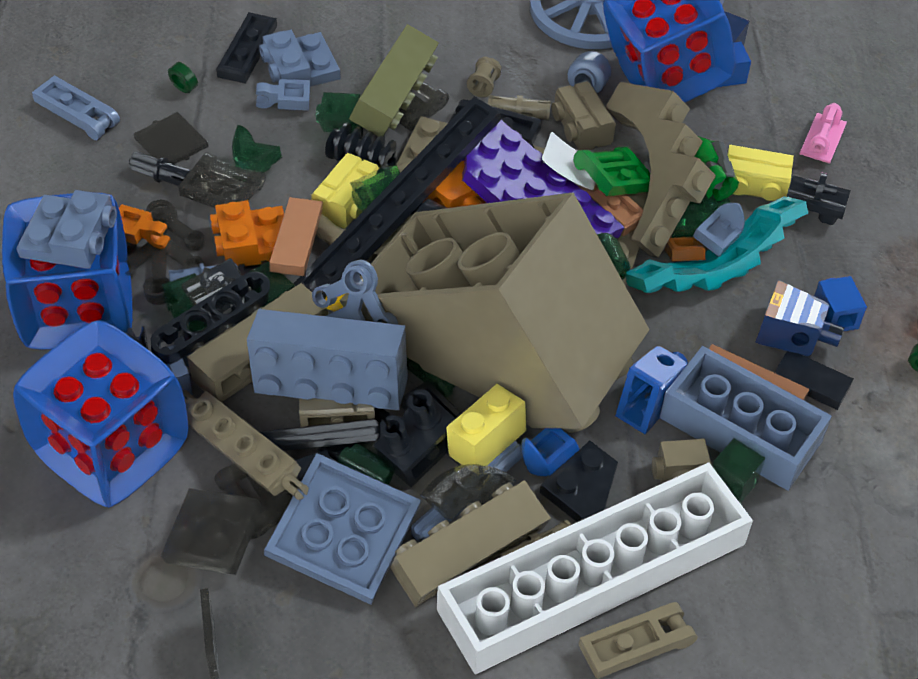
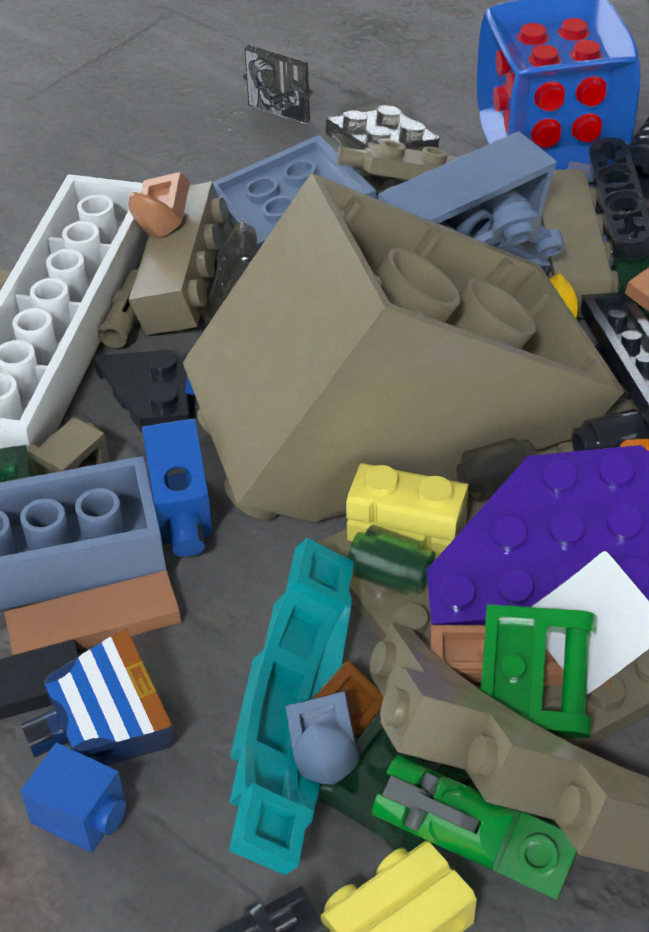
camera: 135 degrees right, 5 degrees down
(460, 552) = (160, 204): none -> nougat plate

